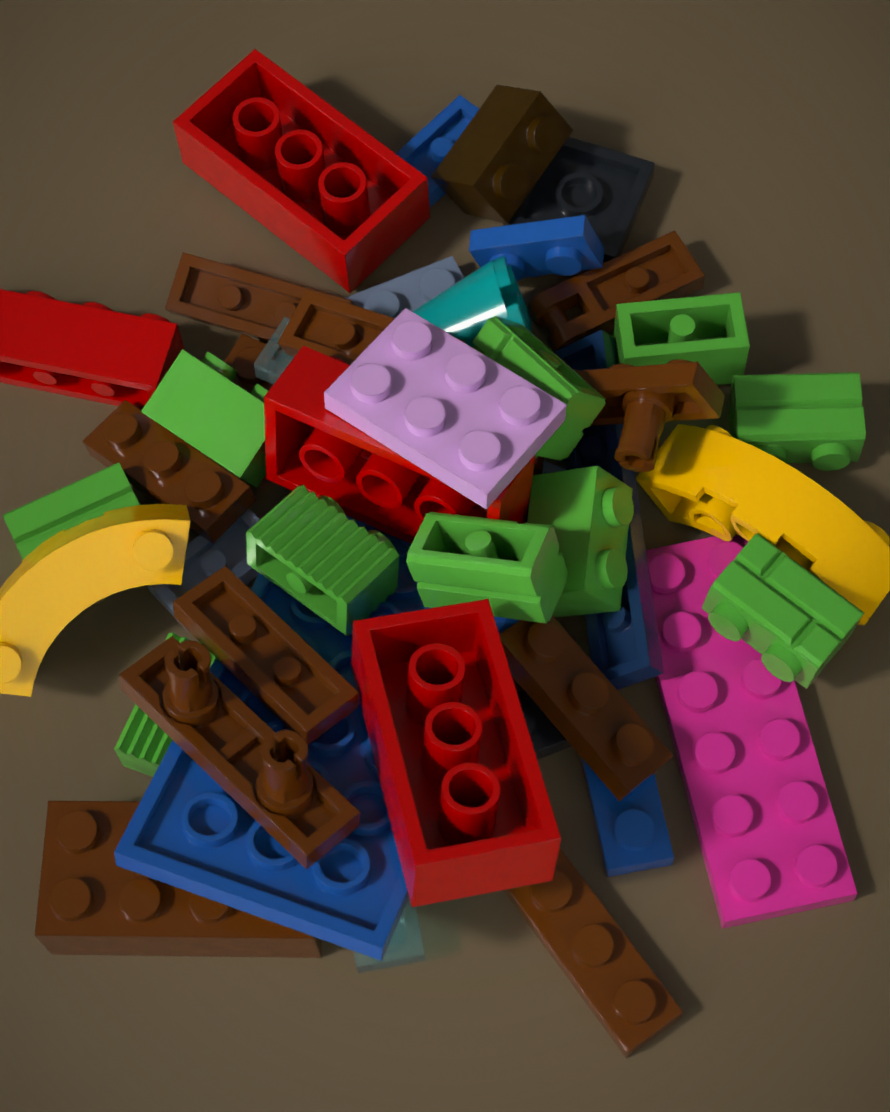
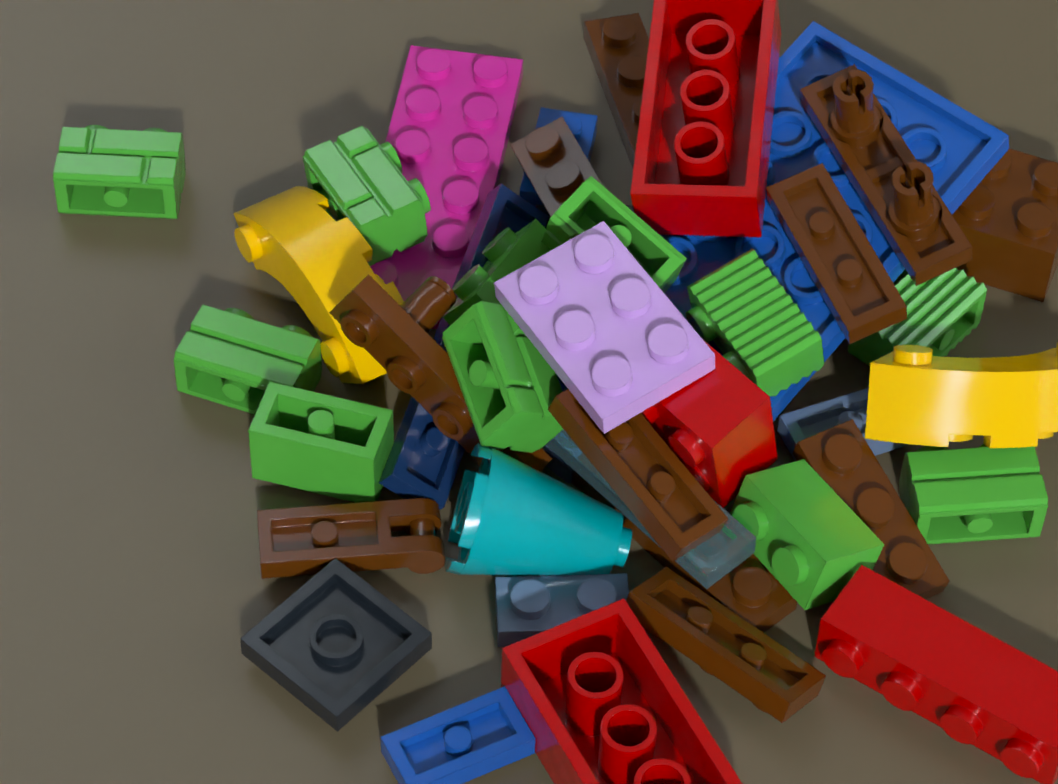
camera: 165 degrees left, 15 degrees down
(502, 153) = (401, 681): dark brown brick -> none
(541, 247) = (415, 578): blue plate -> none

